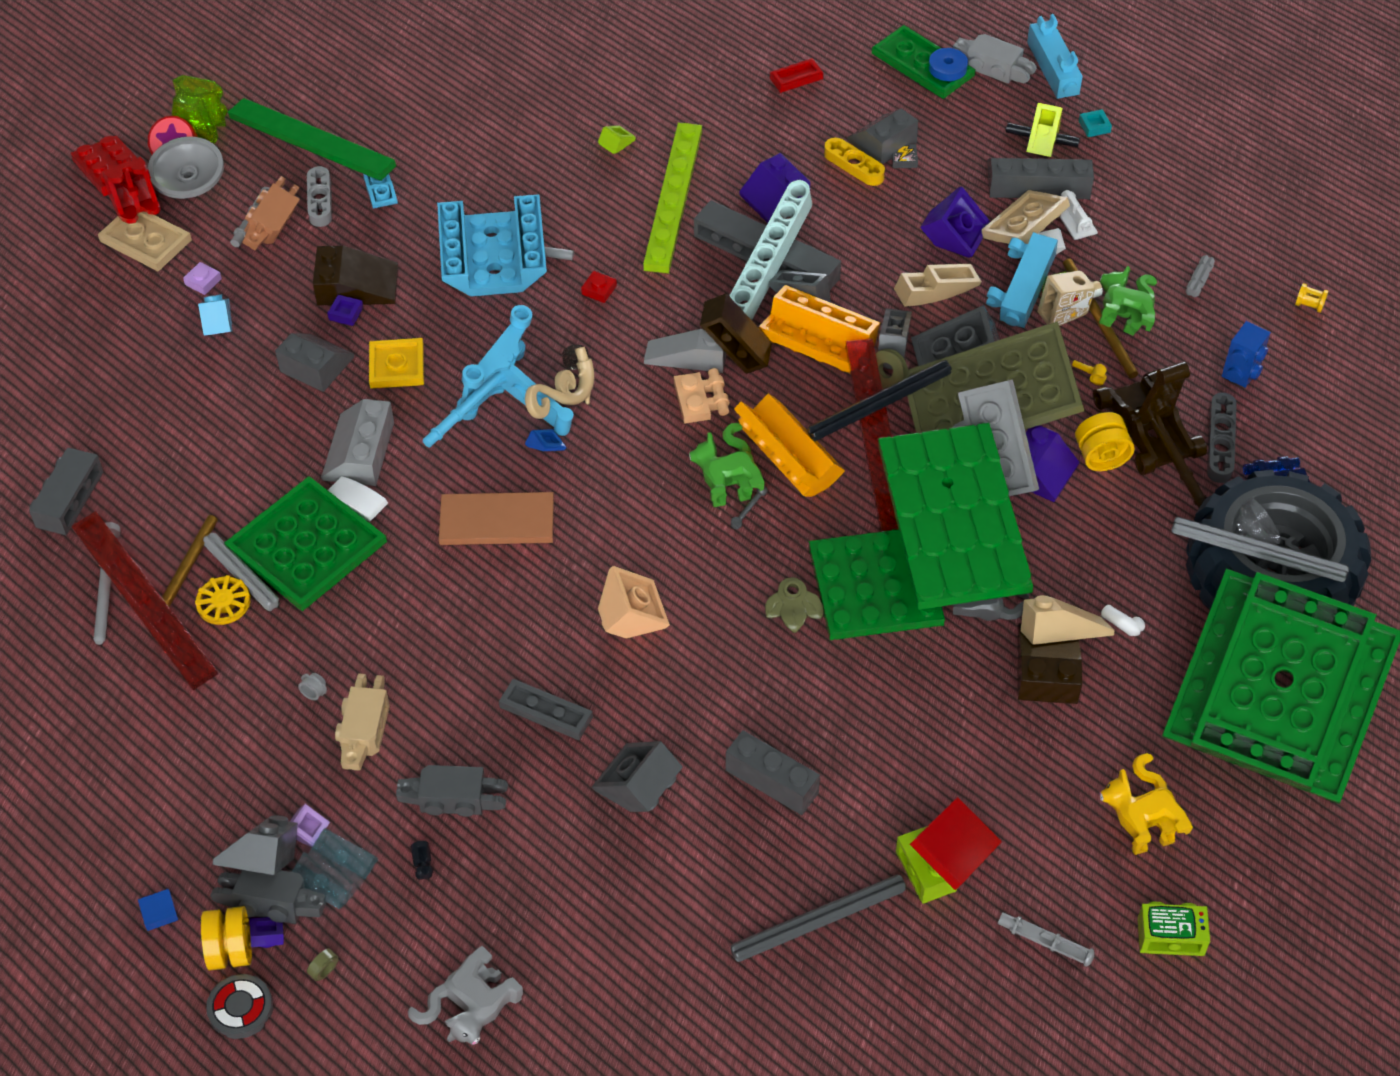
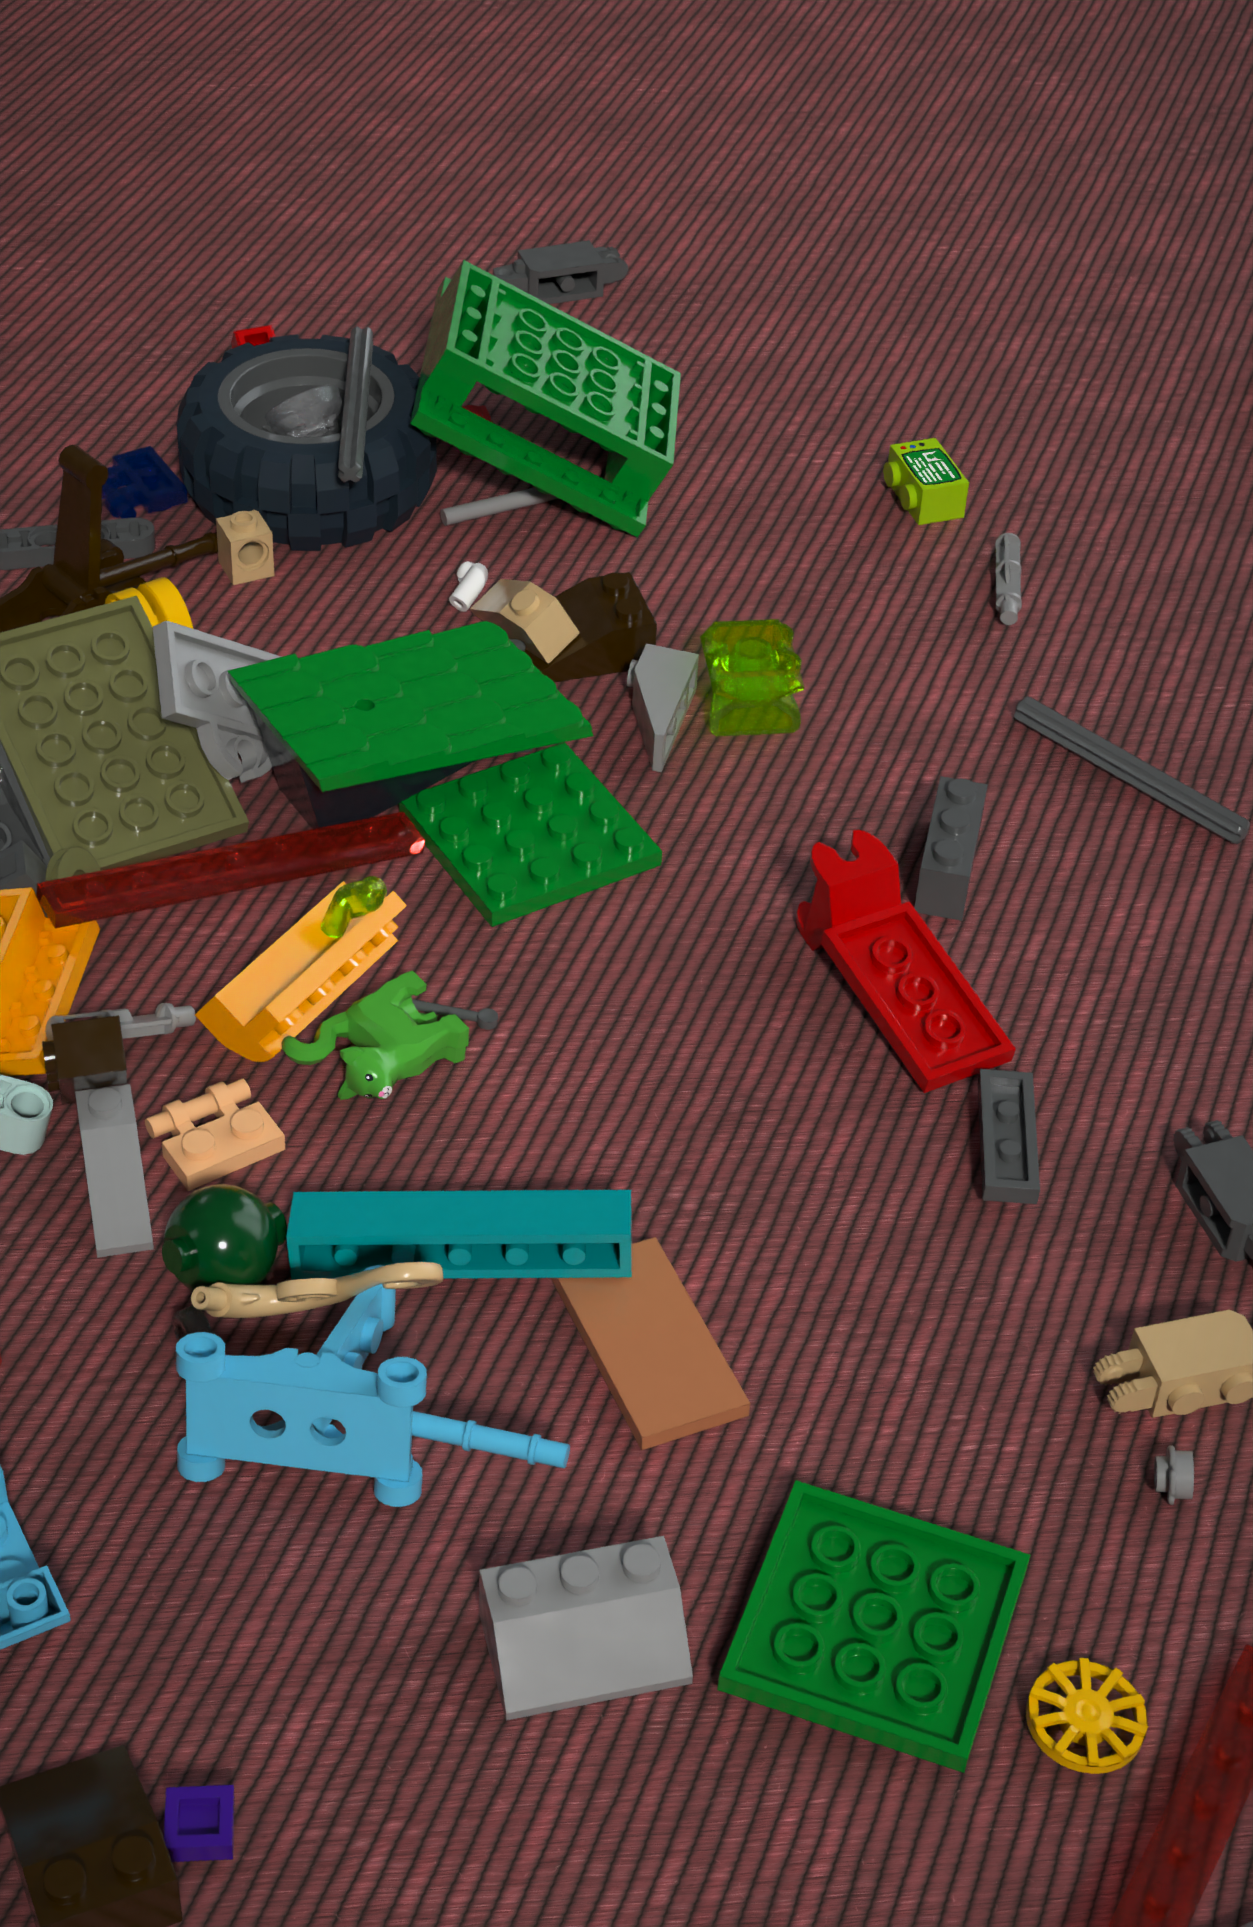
camera: 115 degrees left, 10 degrees down
(189, 559) = (1028, 1832): pearl gold bar -> none
(240, 570) = (1001, 1718): light grey axle -> none
(312, 359) = (375, 1821): dark grey slope -> none
(358, 497) = (722, 1579): white slope -> none
(396, 363) = (326, 1652): yellow plate -> none
(545, 440) = (429, 1327): blue slope -> none
(580, 458) = (463, 1232): none -> teal brick
(621, 373) = (222, 1237): none -> dark green brick
(631, 605) = (755, 1080): light nougat slope -> none
(638, 776) = (1054, 992): dark grey slope -> none
(680, 699) = (898, 966): none -> red hinge
(778, 370) = (164, 1020): none -> light grey piece
(793, 607) = (620, 905): olive plate -> none
(802, 453) = (352, 902): none -> clear neon green arm
(879, 400) = (182, 851): black axle -> none
(924, 878) = (984, 682): lime brick -> none
(955, 843) = (952, 642): red tile -> none
(963, 721) = (752, 677): none -> clear neon green piece
(965, 676) = (662, 693): none -> light grey slope
(1148, 810) = (770, 520): yellow animal -> none
(1182, 504) = (245, 547): none -> tan brick

